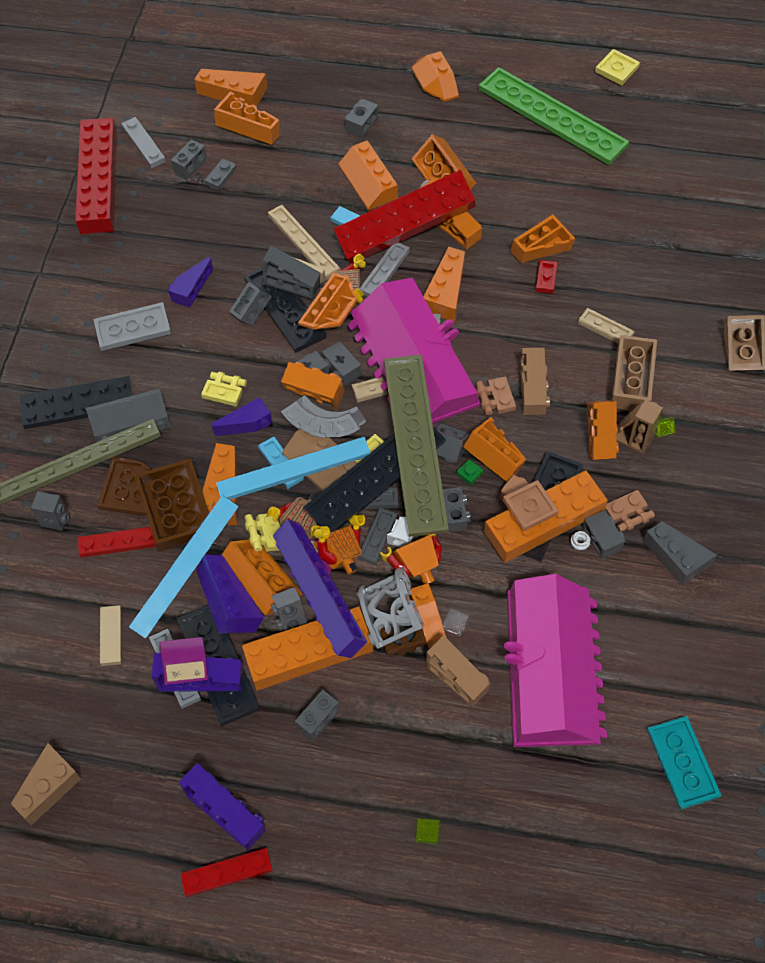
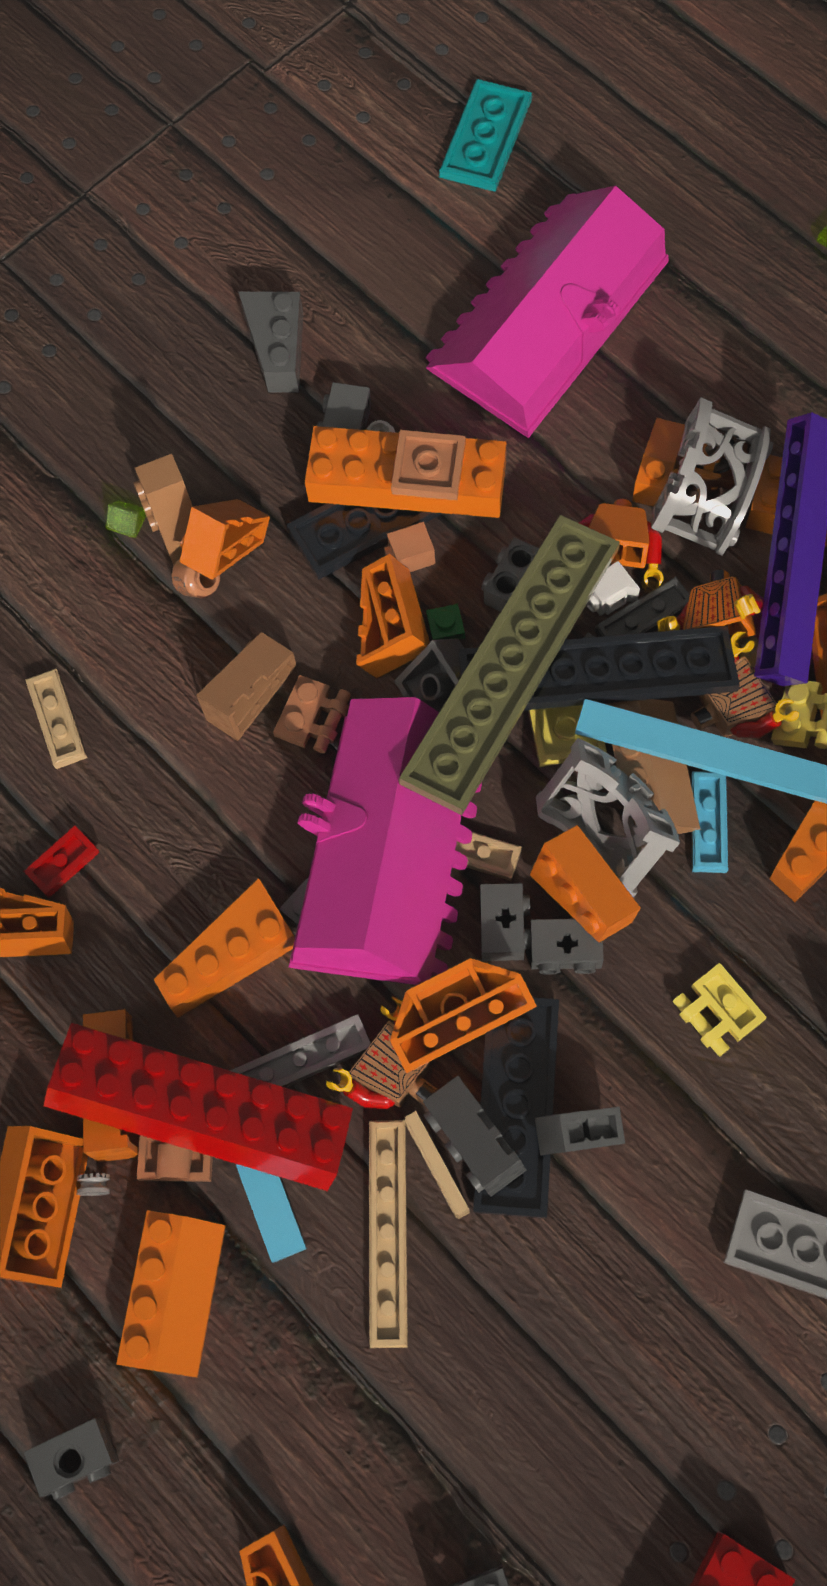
camera: 140 degrees left, 10 degrees up
(189, 284) = (657, 1270): dark purple slope -> none
(220, 174) = (429, 1522): dark grey plate -> none
(243, 420) = (716, 921): dark purple slope -> none
(455, 622) = (626, 438): clear plate -> none
(456, 671) = (676, 366): medium nougat wedge -> none
(626, 506) = (281, 444): nougat plate -> none
(634, 371) = (96, 602): medium nougat brick -> none

